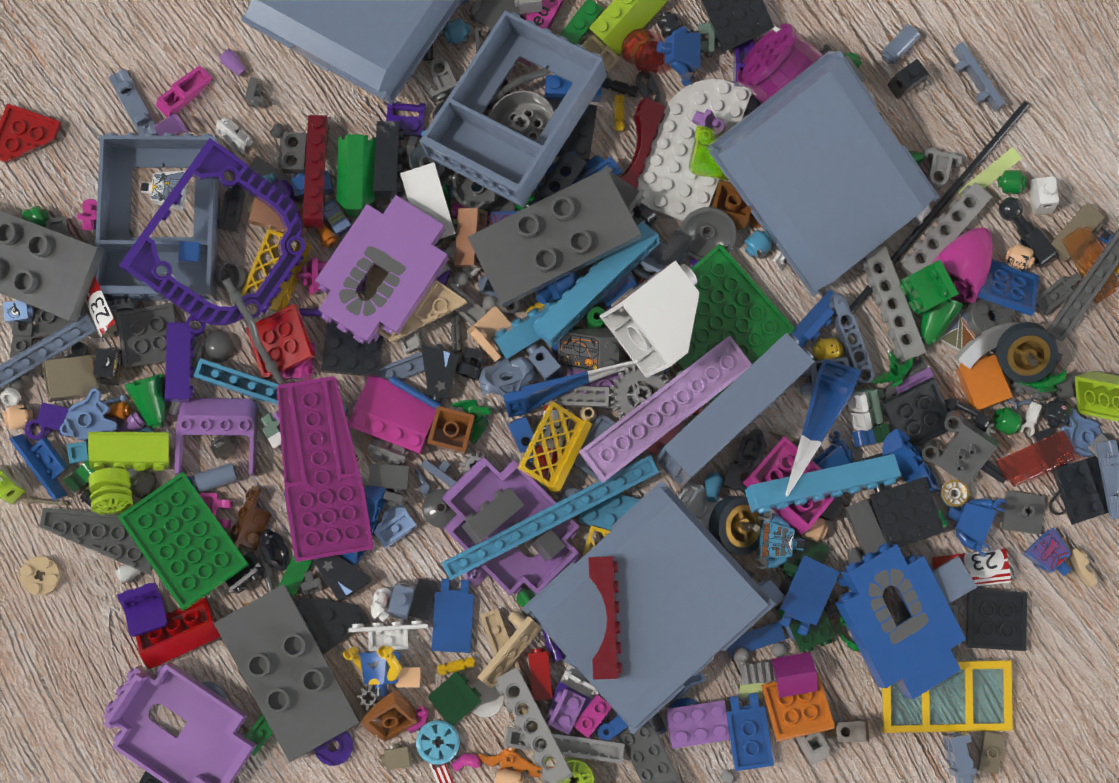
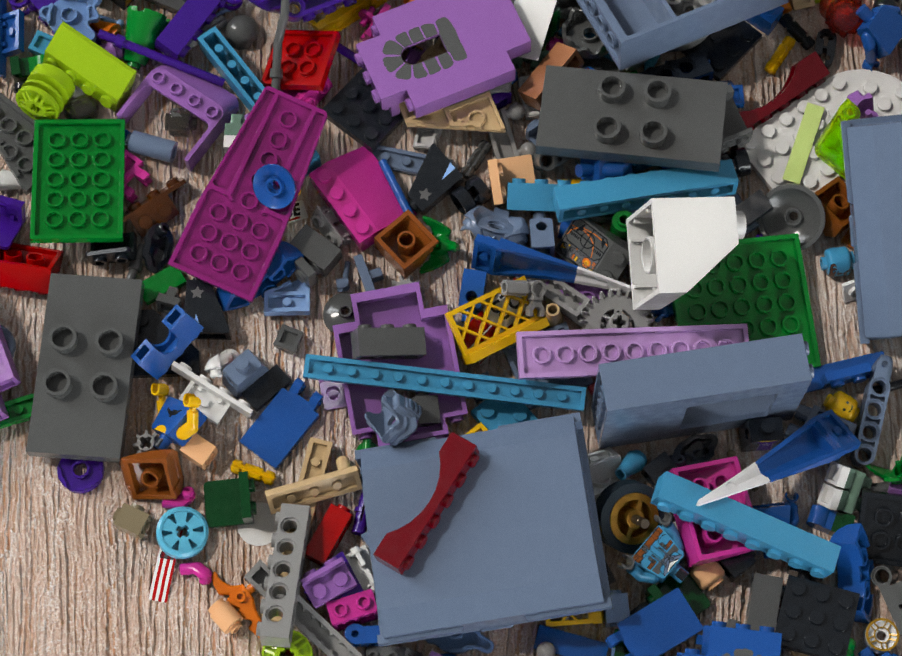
camera: 40 degrees right, 10 degrees down
(140, 416) = (121, 42): none -> dark purple bar
(332, 463) = (268, 192): none -> blue dish
(335, 632) = (159, 357): none -> blue arch
(415, 554) = (288, 339): none -> dark grey plate
(535, 558) = (394, 407): none -> sand blue piece
(565, 407) = (534, 289): none -> light grey bar
(679, 171) = (803, 143): none -> yellowish green sticker
(787, 406) = (763, 434): none -> black torso

